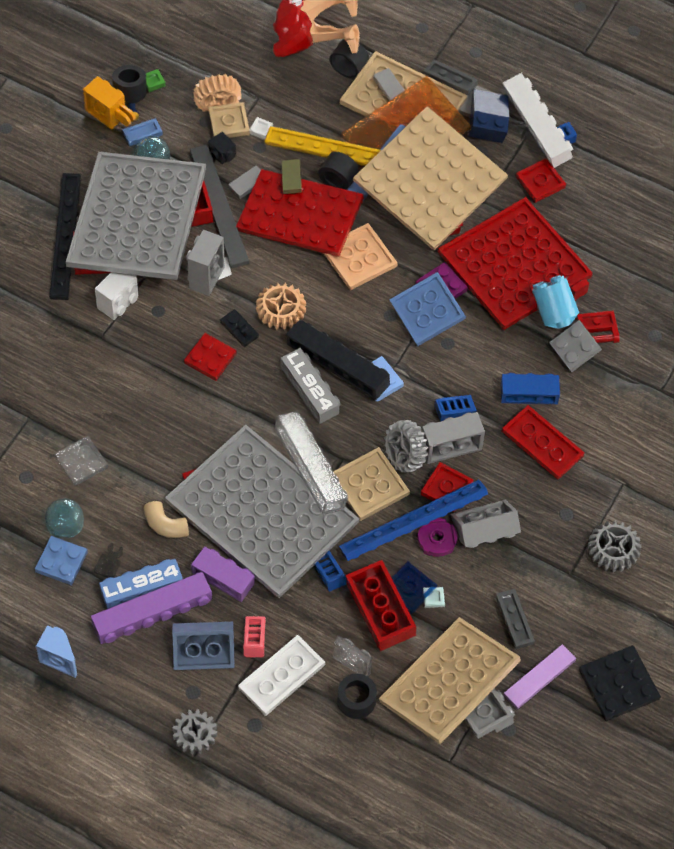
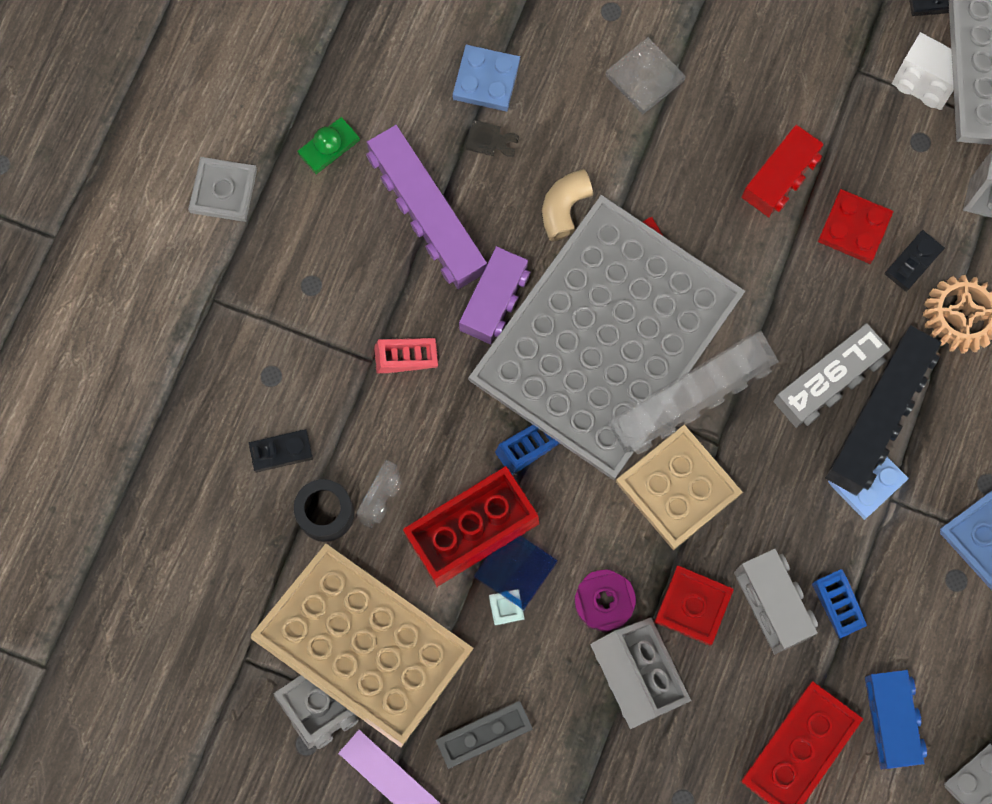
camera: 85 degrees right, 15 degrees up
(55, 651) = (336, 91): light blue slope -> none
(64, 518) = (551, 69): clear light blue cylinder -> none
(92, 668) = (328, 145): none -> green tile
(111, 741) = (223, 189): none -> light grey tile
(137, 583) = (460, 185): medium blue brick -> none
(166, 389) = (783, 171): none -> red brick
(202, 729) = (256, 289): light grey gear -> none
(203, 645) = (378, 285): sand blue slope -> none
(281, 675) = (347, 400): white plate -> none
(309, 723) = (280, 450): none -> black plate
(406, 446) = (743, 530): light grey gear -> none
(413, 520) = (624, 561): blue plate -> none

